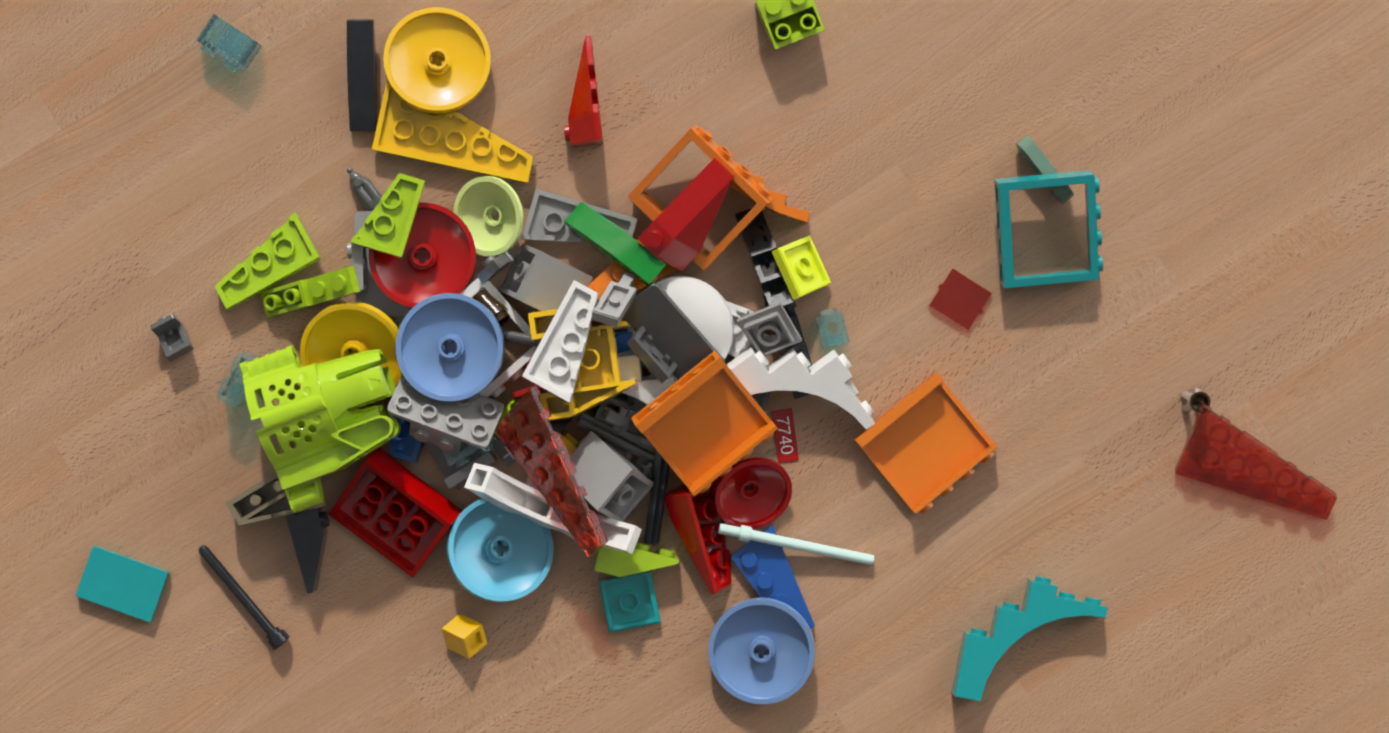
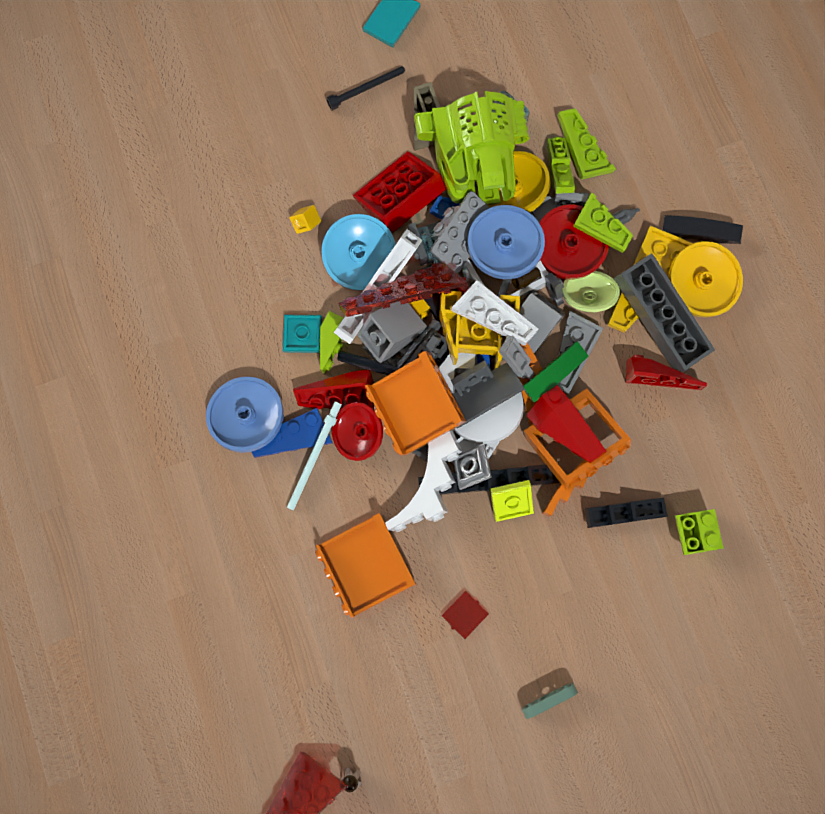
camera: 110 degrees right, 10 degrees down
(172, 336) = (547, 76): dark grey bracket -> none
(229, 43) = (738, 149): clear light blue brick -> none
(309, 540) = (395, 134): black slope -> none
(501, 110) = (664, 314): none -> dark grey brick
(782, 113) = (625, 512): none -> black slope
(785, 435) = (393, 465): red sticker -> none
(827, 338) = (455, 514): clear light blue brick -> none
(1004, 230) = (493, 727): teal window -> none
(1040, 605) = (226, 625): teal arch -> none

